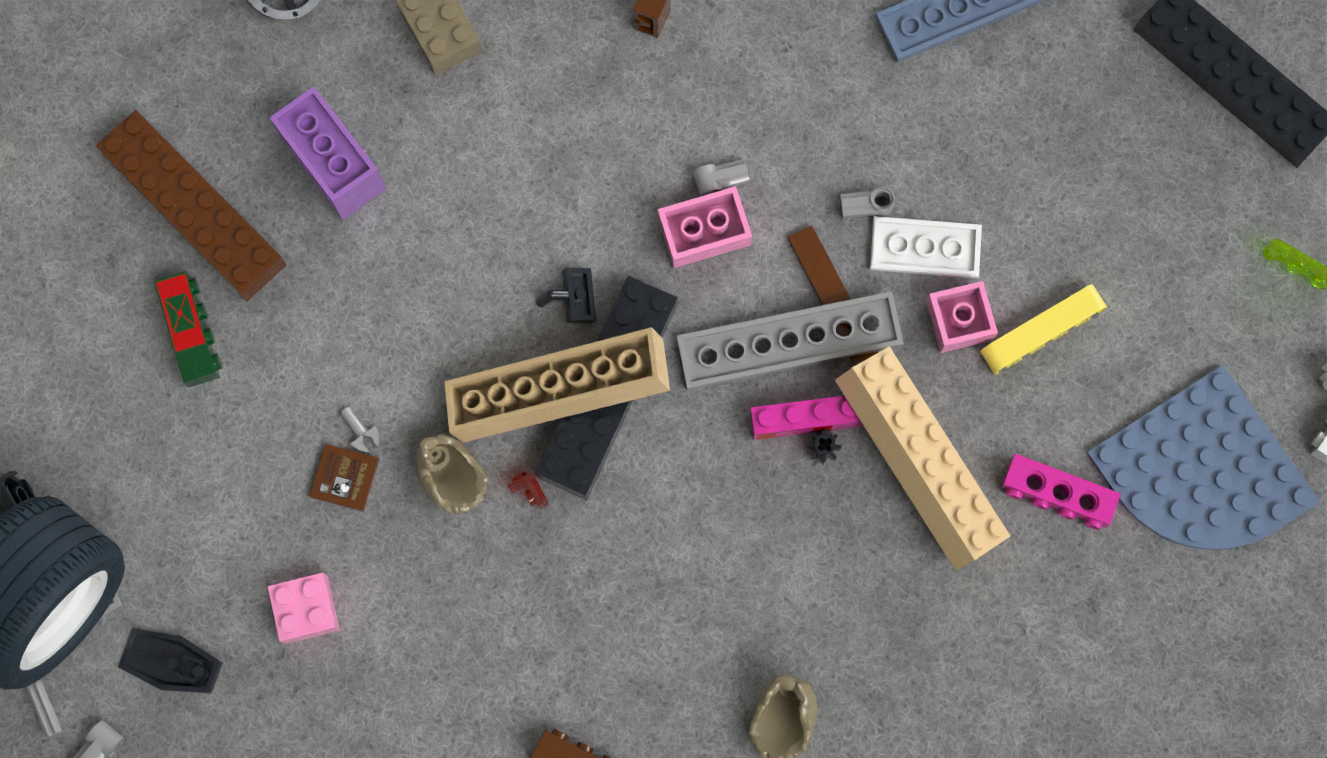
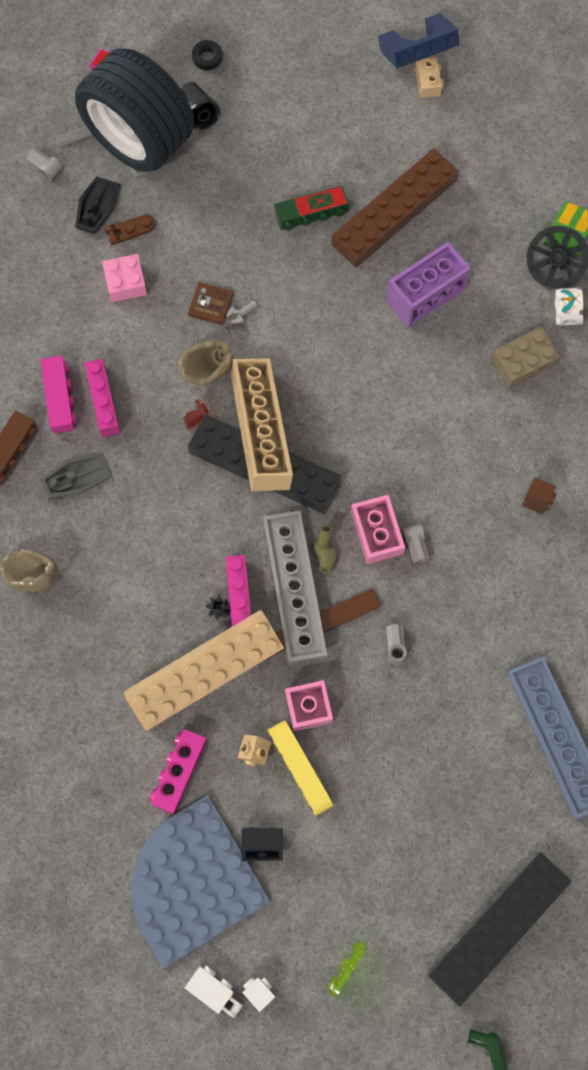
camera: 90 degrees right, 5 degrees down
(214, 606) = (130, 229): none -> reddish brown plate
(497, 700) = (57, 394): none -> dark pink brick
(504, 630) = (102, 397): none -> dark pink brick
(577, 295) = (330, 446): black plate -> none
(628, 664) = (76, 476): none -> dark grey piece
(735, 300) = (325, 550): none -> olive arm
(925, 247) = (364, 687): white tile -> none
(1026, 389) = (254, 750): none -> tan brick
(1150, 374) = (262, 844): none -> black brick

